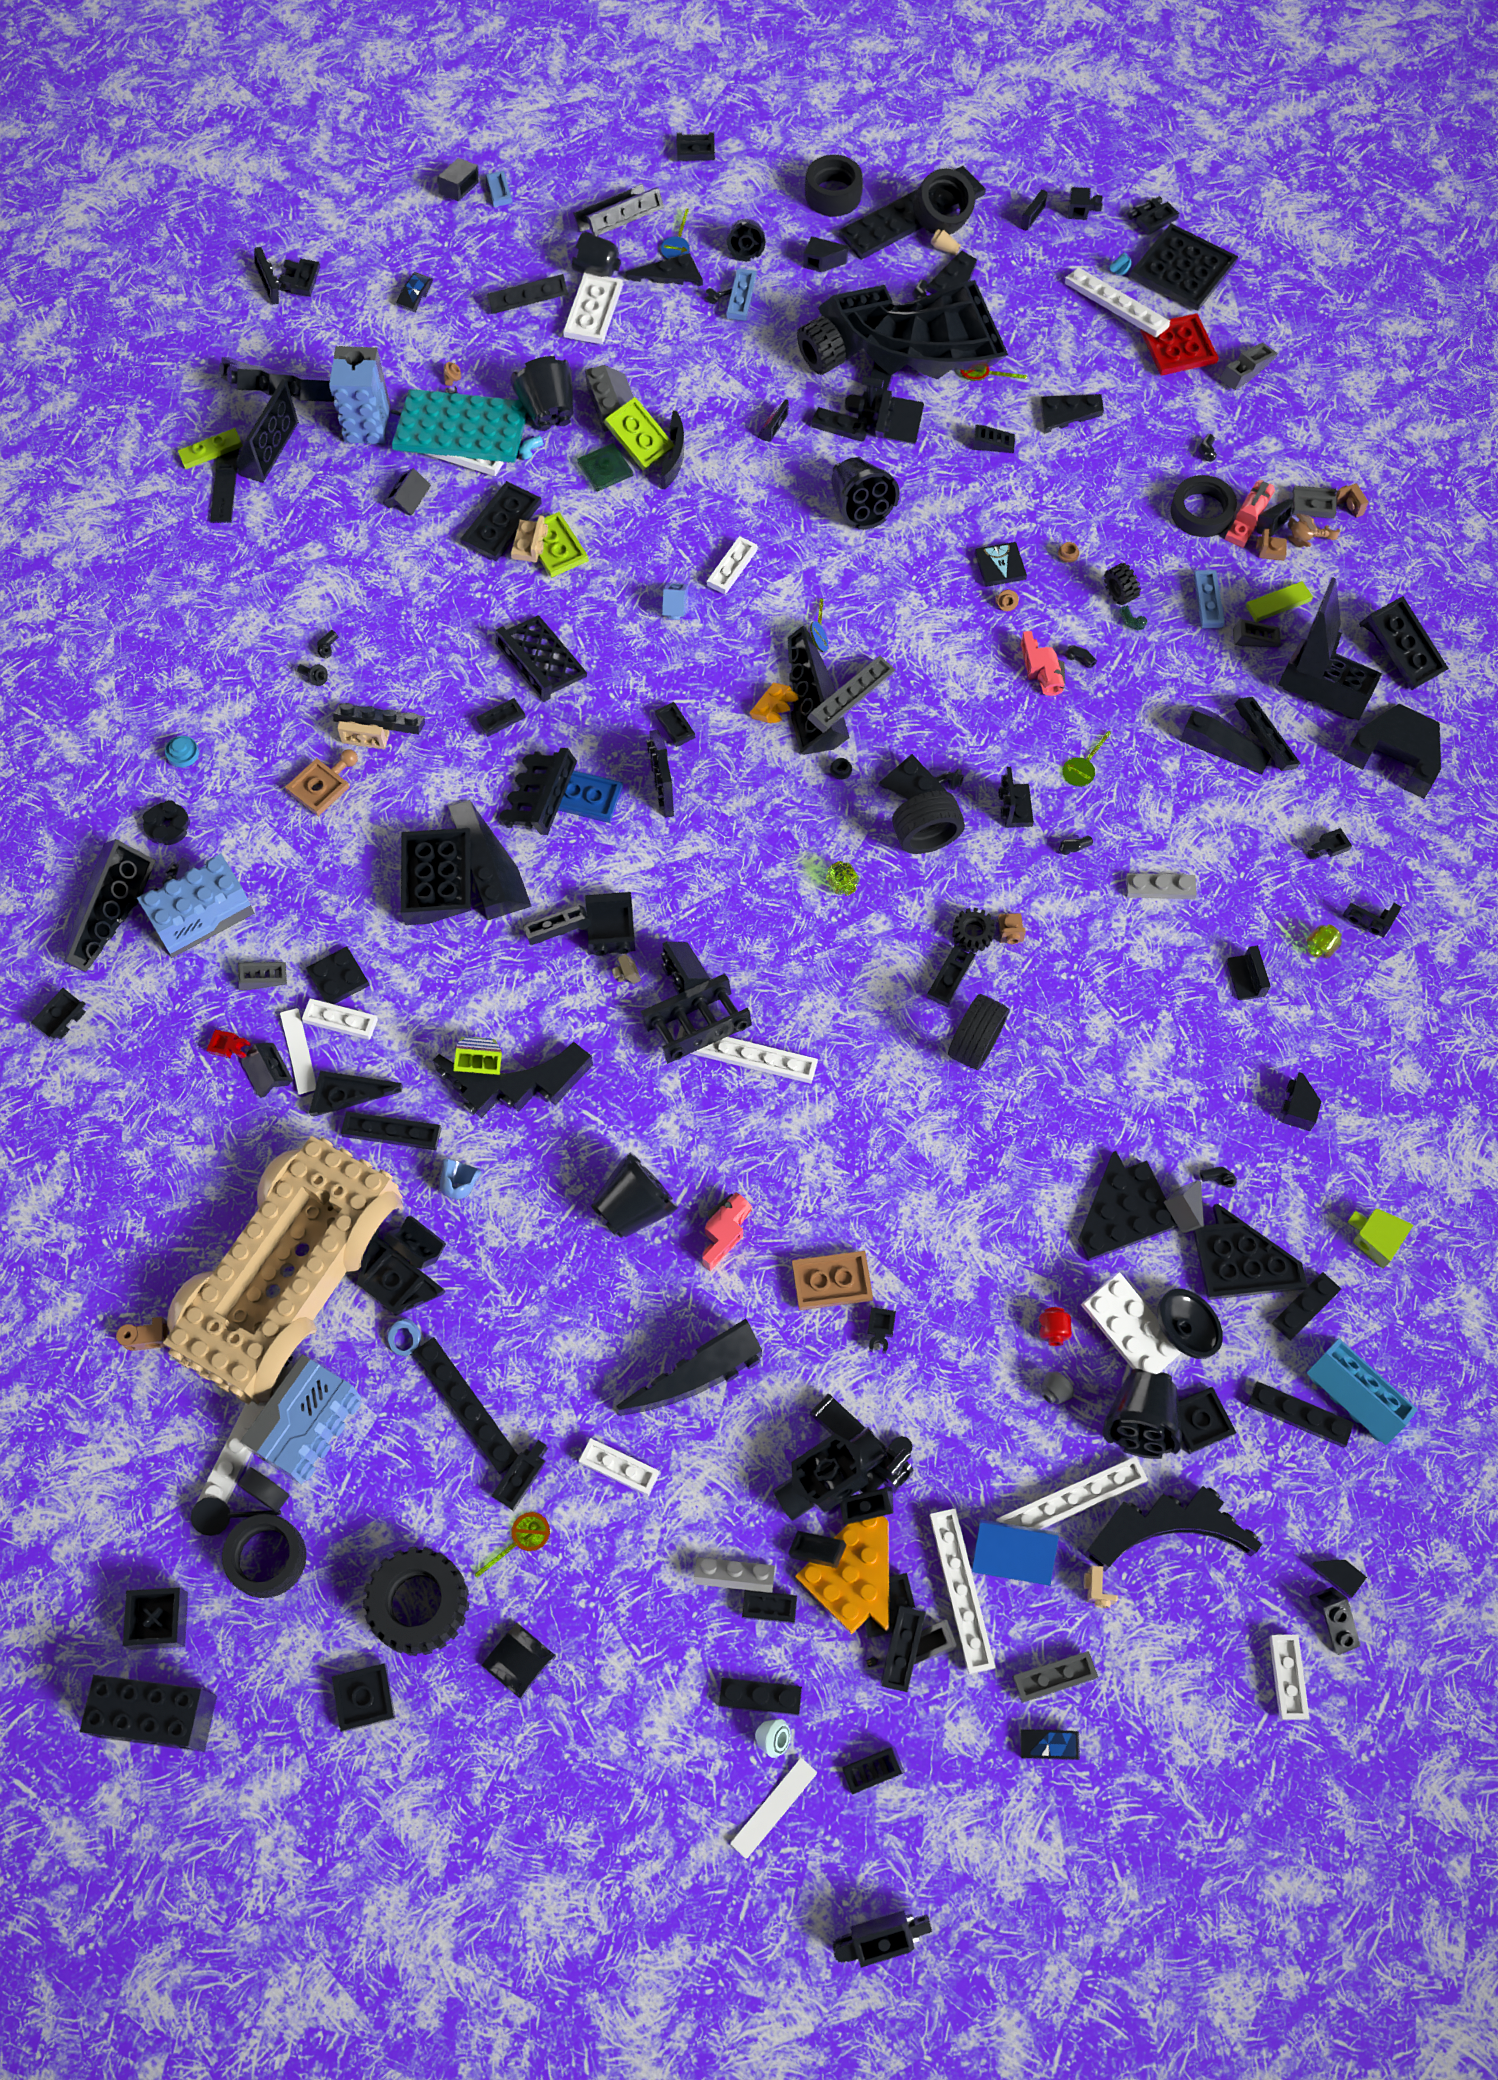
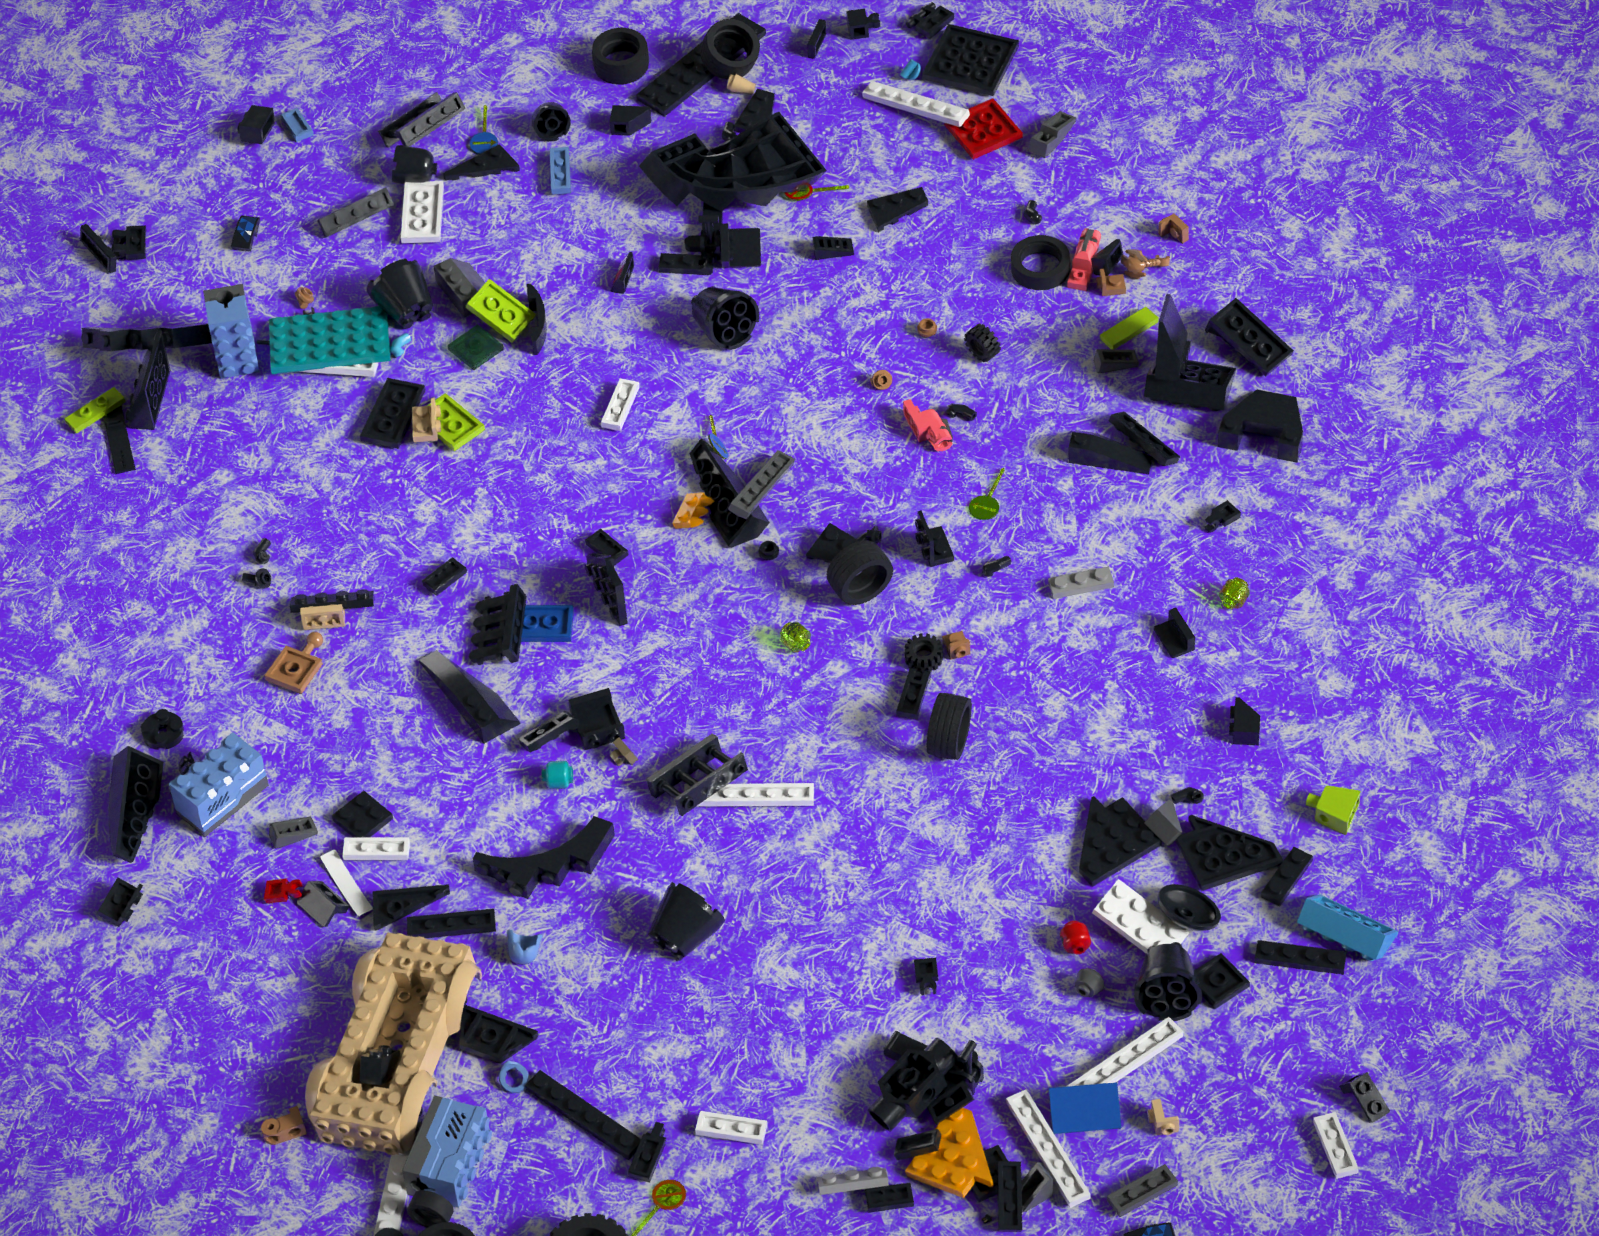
camera: 10 degrees left, 15 degrees down
(182, 751) = (157, 668): dark azure plate -> none
(255, 1298) = (378, 1065): none -> black slope
(408, 491) = (296, 407): black panel -> none
(415, 1243) = (503, 1001): black bracket -> none
(435, 875) = (428, 713): black slope -> none
(478, 1055) = (513, 843): lime torso -> none
(526, 663) = (455, 527): black fence -> none
(551, 980) = (557, 774): none -> teal head
(674, 600) = (576, 445): medium blue slope -> none
(682, 966) = (671, 736): black slope -> none
(695, 147) = (476, 48): black plate -> none
(714, 296) = (534, 177): black hand -> none
(714, 1362) = (791, 1029): black wedge -> none
(724, 1229) = (769, 930): coral plate -> none
(821, 345) = (649, 198): black tyre -> none
(832, 1280) = (874, 948): medium nougat plate -> none
(1000, 564) = (867, 351): black tile -> none
(1132, 622) = (997, 373): arm -> none
(1166, 1517) = (1206, 1055): black arch -> none
(1208, 599) = (1064, 339): medium blue plate -> none
(1314, 501) = (1140, 237): dark grey plate -> none
(1341, 1575) = (1361, 1063): black tile -> none
(1371, 922) = (1277, 570): black bracket -> none

